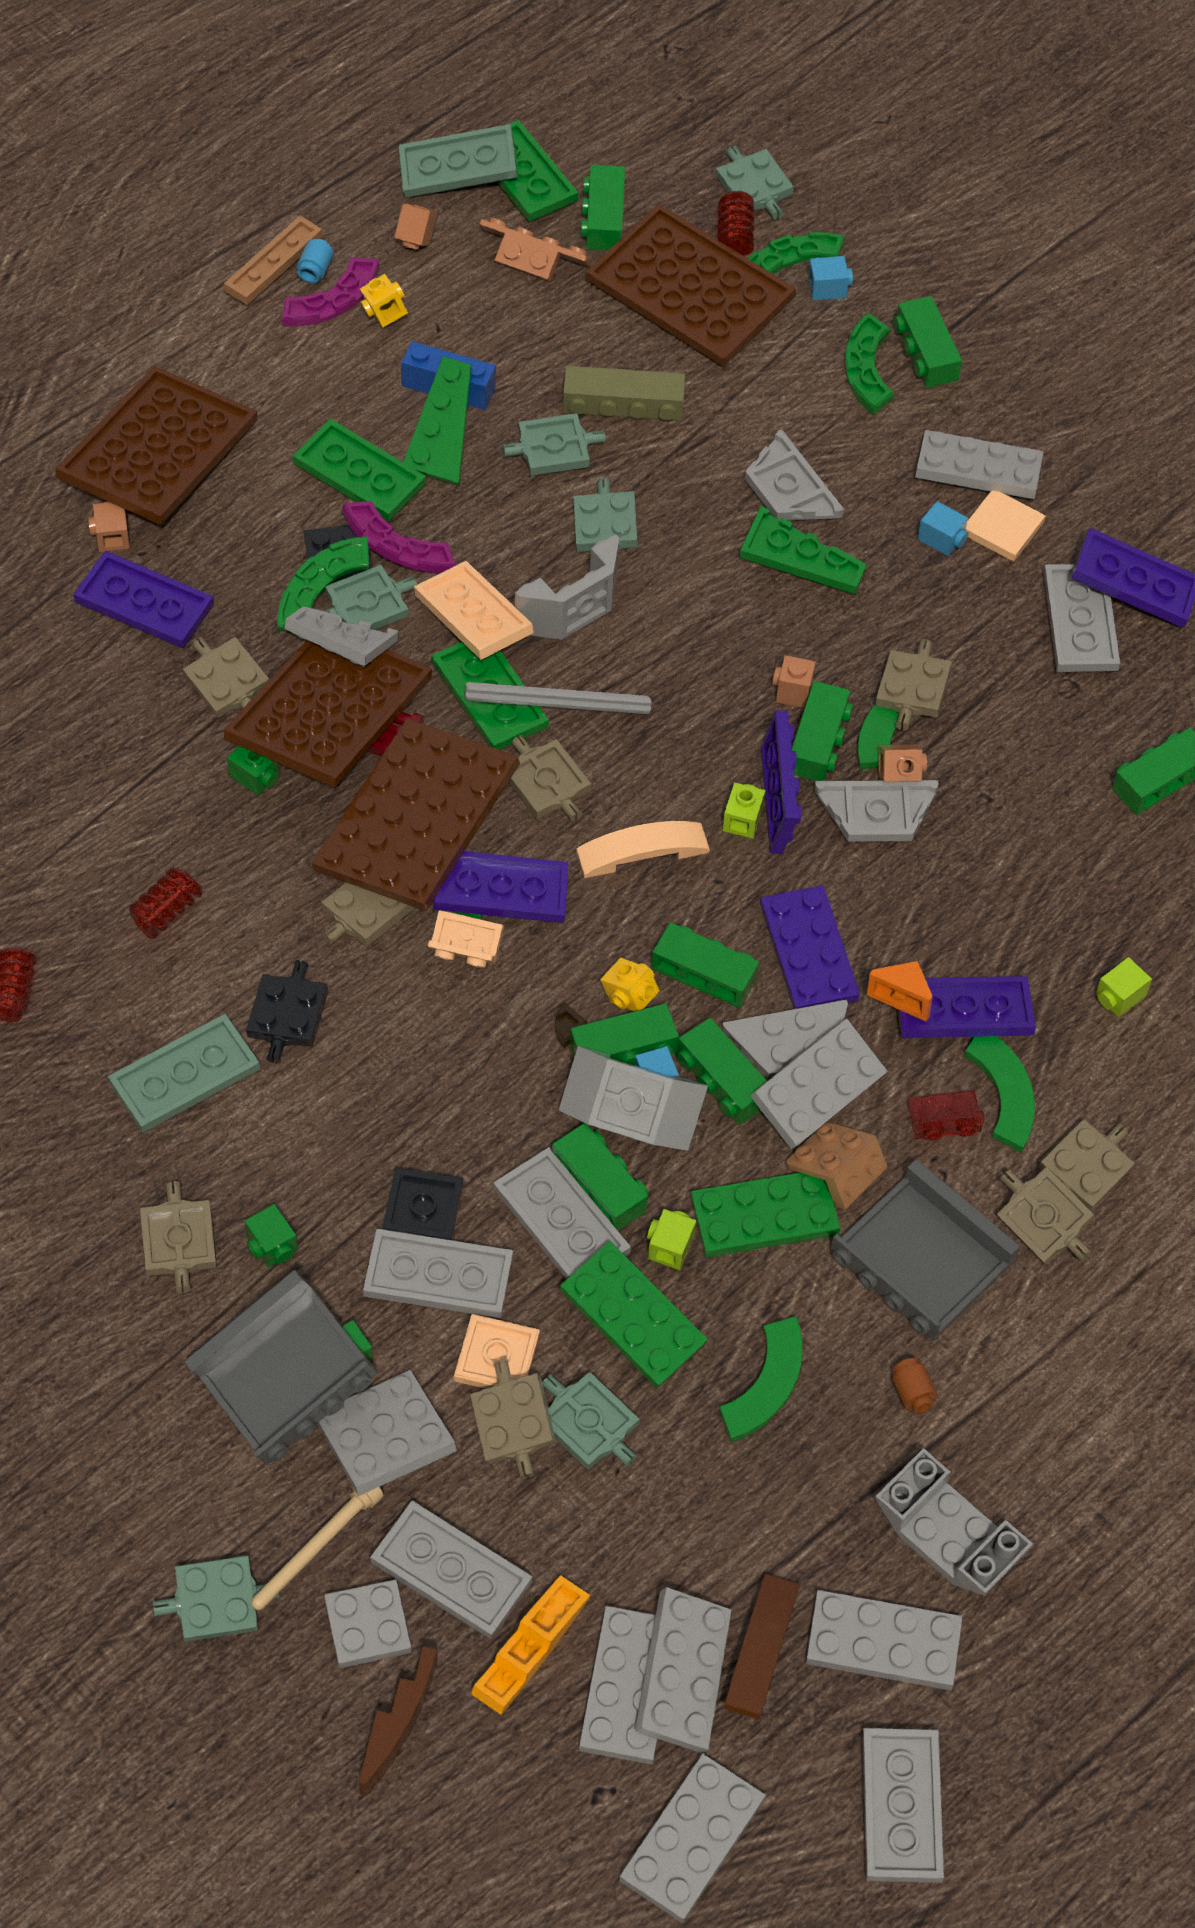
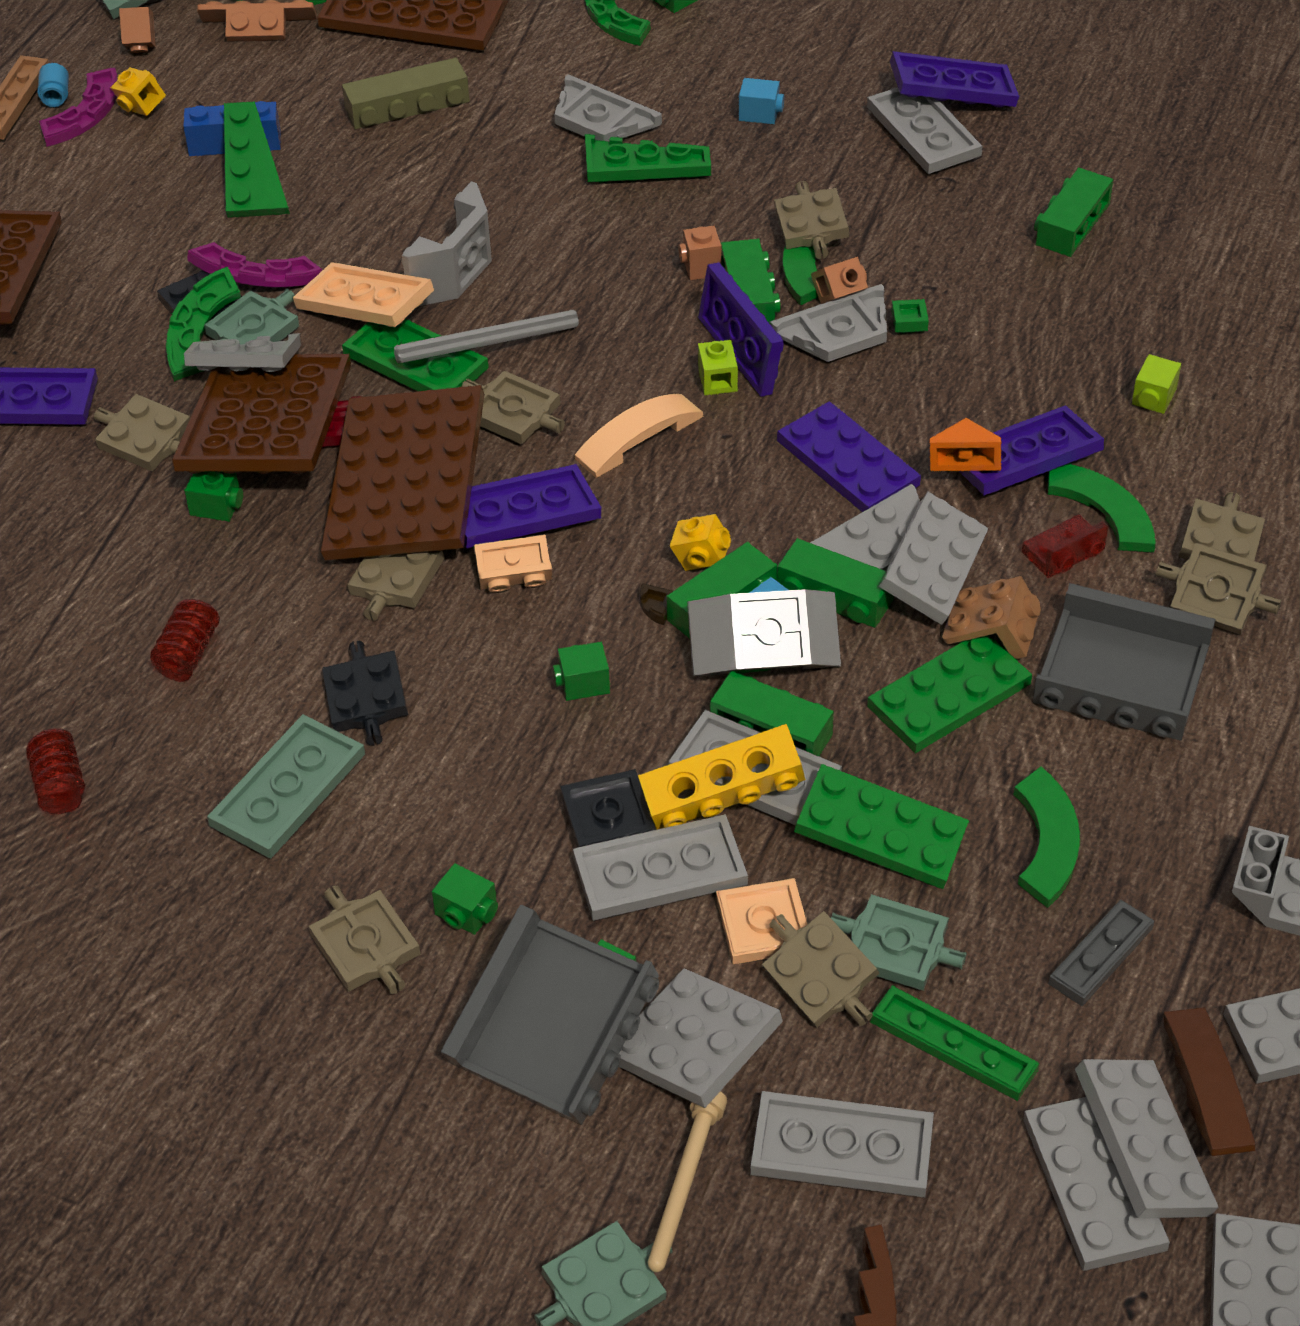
camera: 20 degrees left, 10 degrees down
(359, 469) = (183, 225): green plate -> none
(367, 1623) = (783, 1238): light grey plate -> none
(469, 1067) = (582, 671): none -> green brick
(472, 1206) = (731, 760): none -> yellow brick
(530, 1644) = (970, 1184): light orange slope -> none
(554, 444) = (362, 150): sand green plate -> none
(587, 1525) = (955, 1043): none -> green tile
(605, 515) = (437, 189): sand green plate -> none
(671, 1238) = (876, 744): lime brick -> none
(705, 965) = (762, 502): green brick -> none
(749, 1500) = (1101, 952): none -> dark grey tile
(914, 1385) = (1194, 781): dark orange brick -> none
(946, 823) = (909, 315): none -> green plate
(979, 464) = (759, 47): light grey plate -> none
(1004, 525) = (810, 84): light nougat tile -> none

